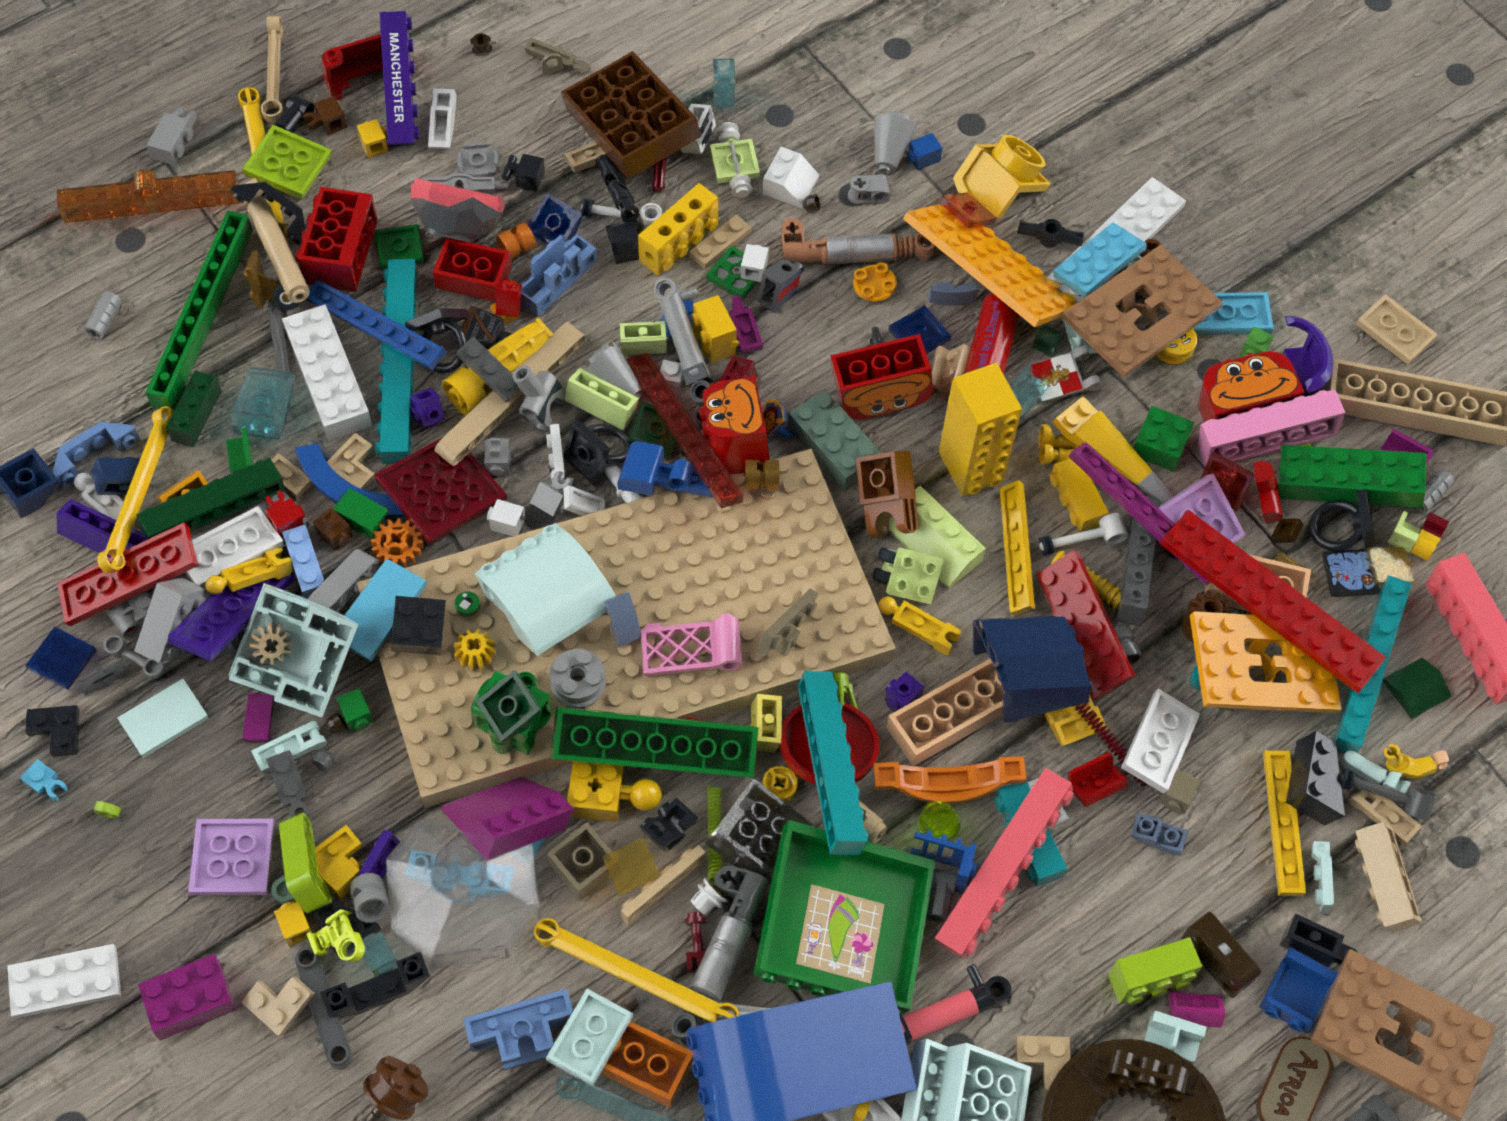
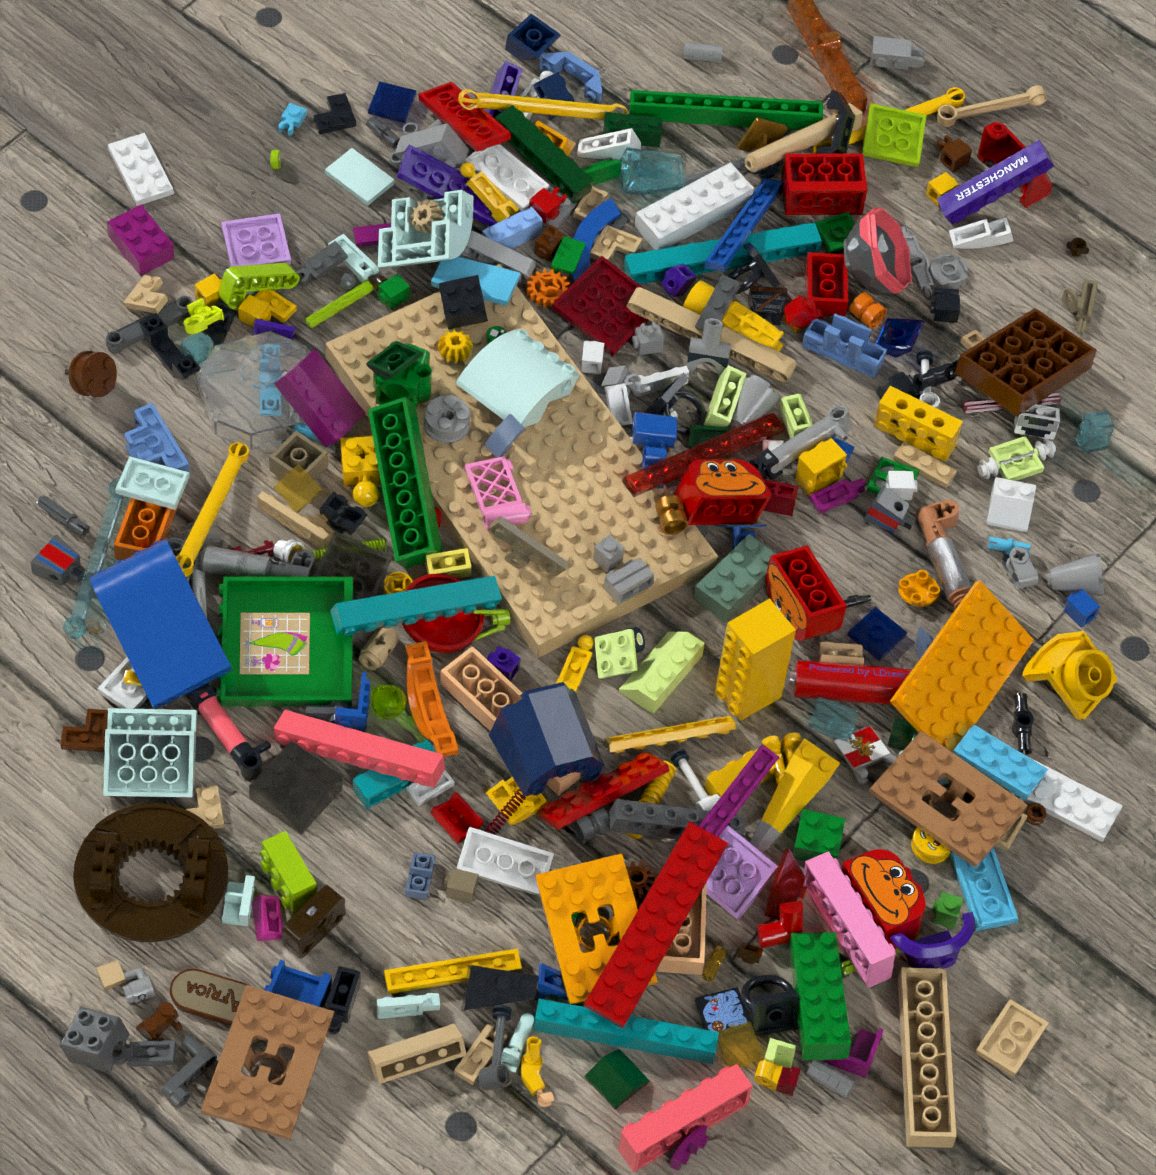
camera: 75 degrees right, 5 degrees down
(210, 438) = (608, 145): none -> white slope
(294, 112) = (940, 128): black piece -> none
(353, 777) = (339, 304): none -> lime axle
(369, 897) = (237, 328): light grey wheel -> none
(800, 548) = (608, 553): none -> light grey brick
(813, 203) = (985, 527): dark brown hinge -> none
(838, 193) = (1006, 545): none -> medium azure pin
(838, 536) = (628, 580): none -> light grey brick
(887, 490) = (686, 615): dark orange brick -> none
(968, 210) = (1018, 646): clear red plate -> none
(1033, 946) = (296, 787): none -> clear smoke slope
(1309, 723) = (550, 982): none -> blue slope

